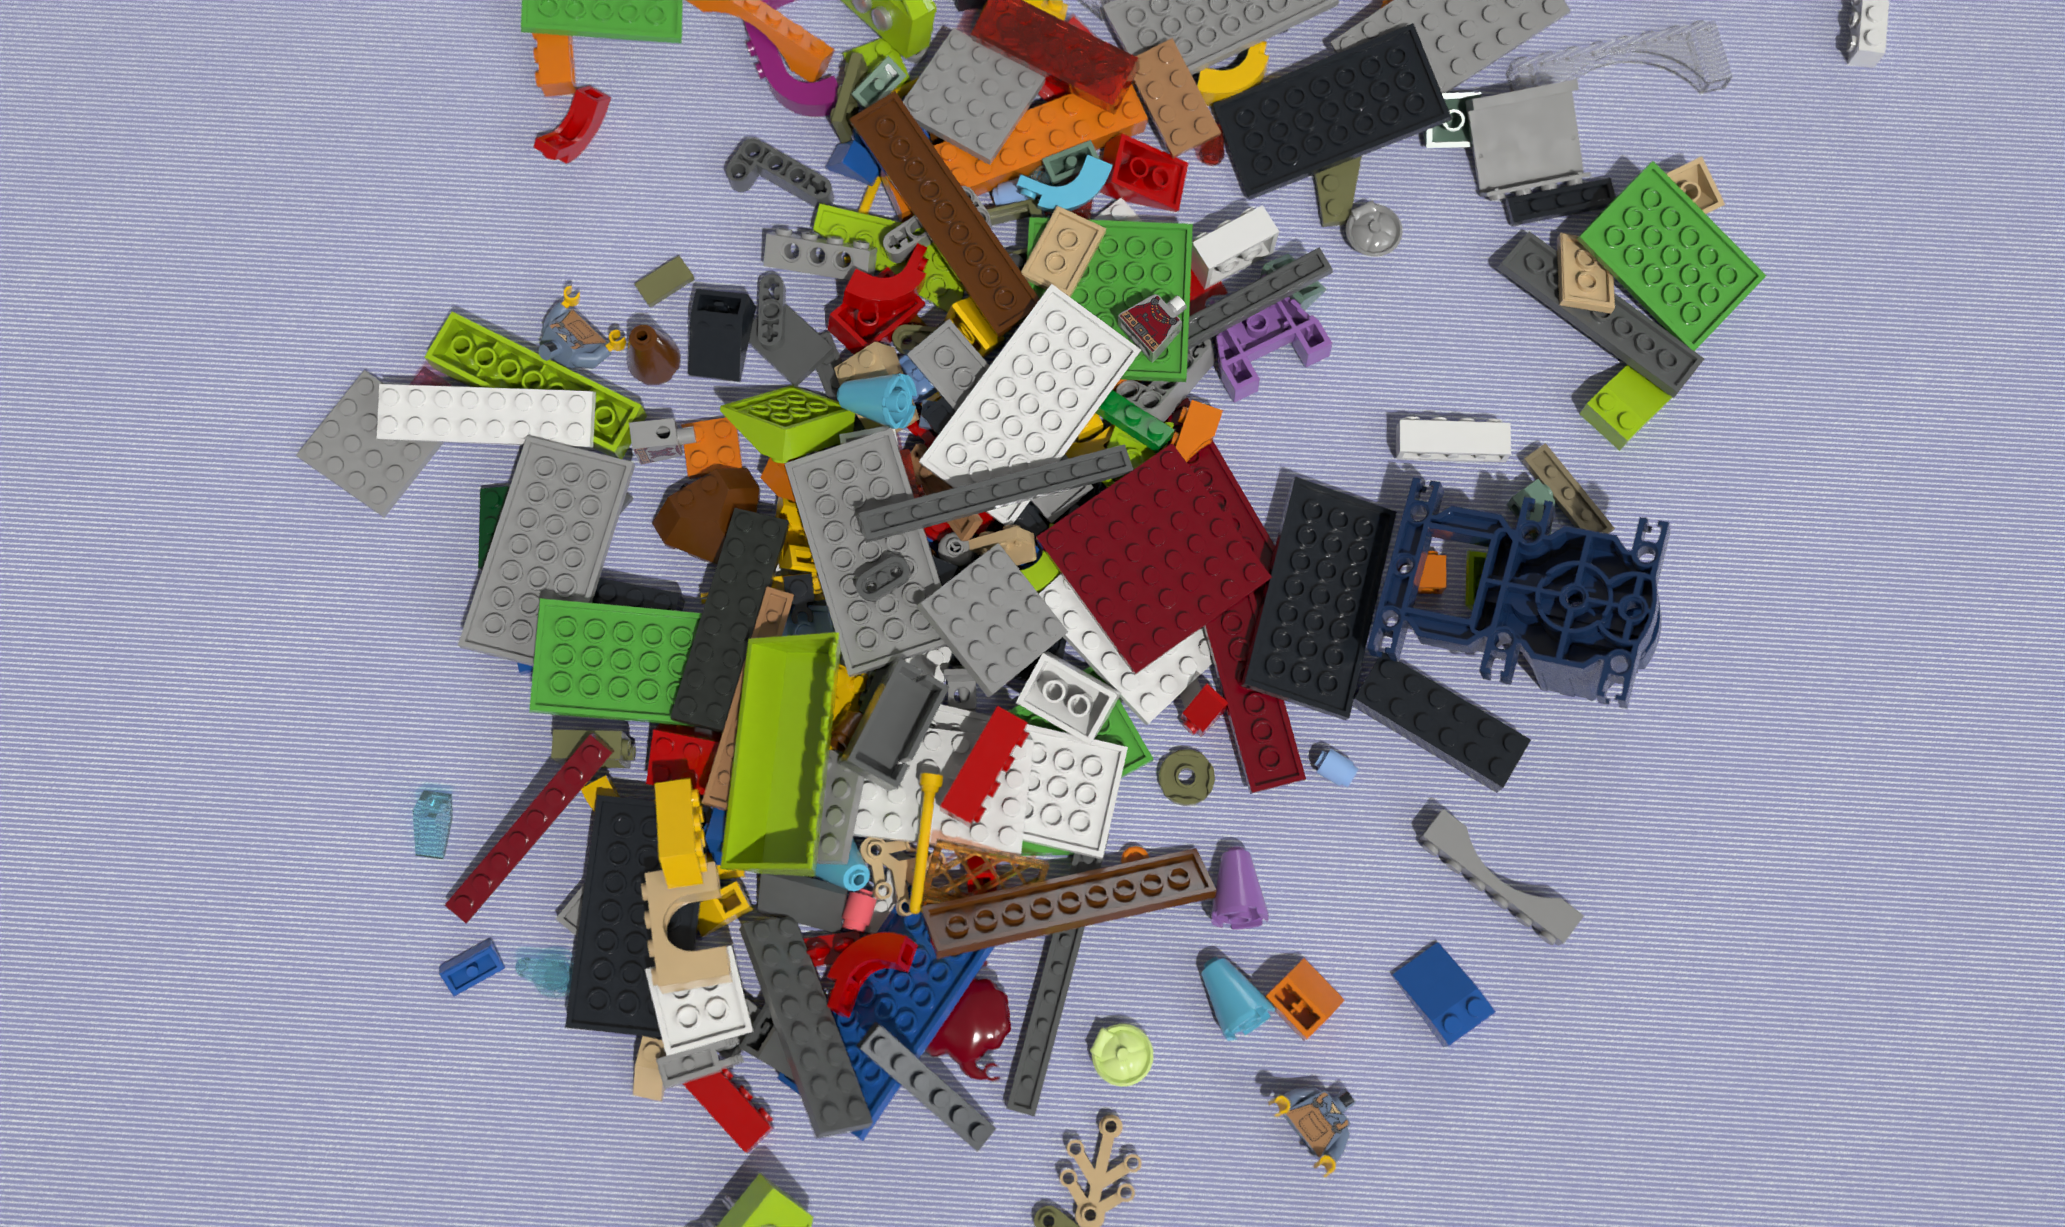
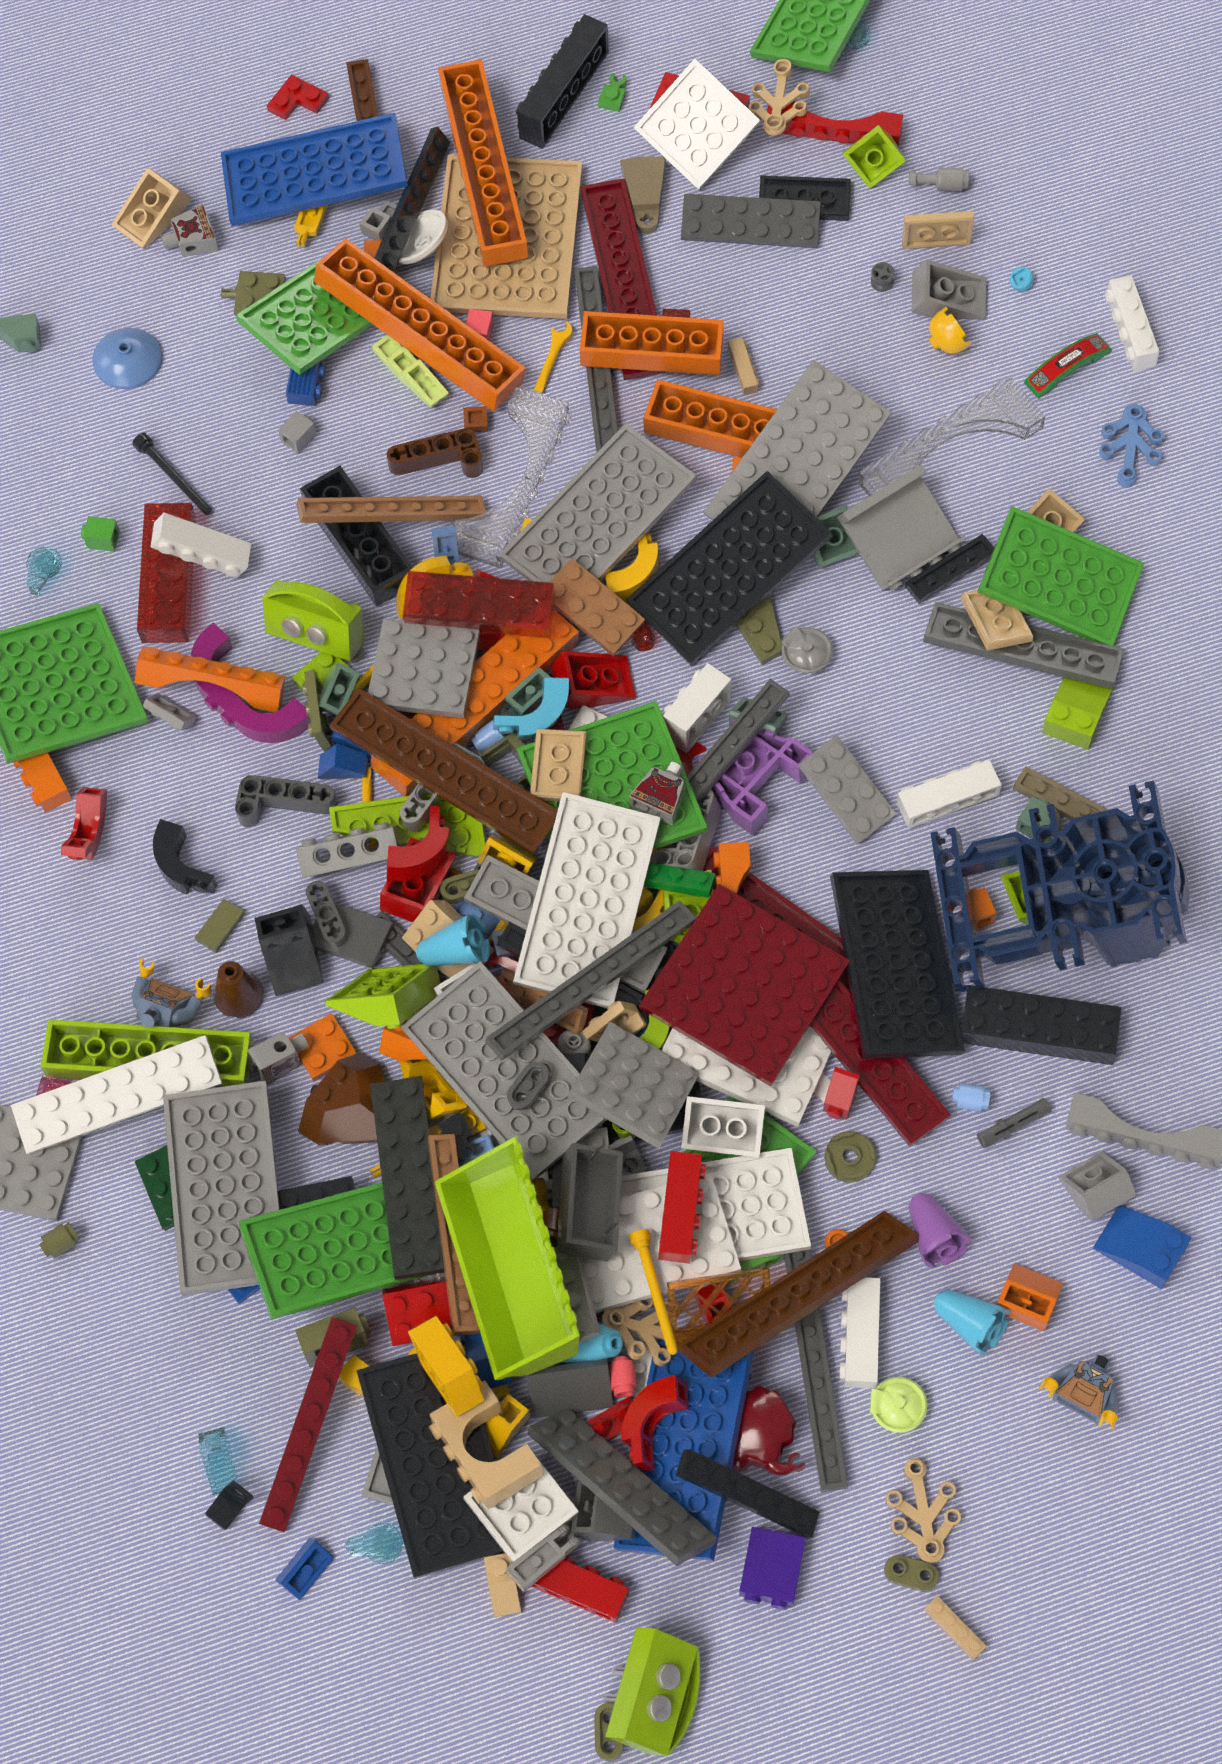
camera: 20 degrees left, 10 degrees down
(374, 538) = (58, 1240): none -> olive brick
(421, 874) = (228, 1504): none -> black bracket
(642, 186) = (166, 848): none -> black arch
(707, 41) = (169, 711): none -> light grey plate
(923, 1166) = (771, 1568): none -> dark purple brick
(1116, 967) = (861, 1334): none -> white brick
(1349, 394) = (846, 789): none -> light grey plate
(1367, 812) = (1005, 1127): none -> dark grey pin
(1425, 914) = (1098, 1185): none -> light grey slope
(1779, 27) = (1066, 362): none -> slope
(1812, 138) = (1131, 441): none -> medium blue plant

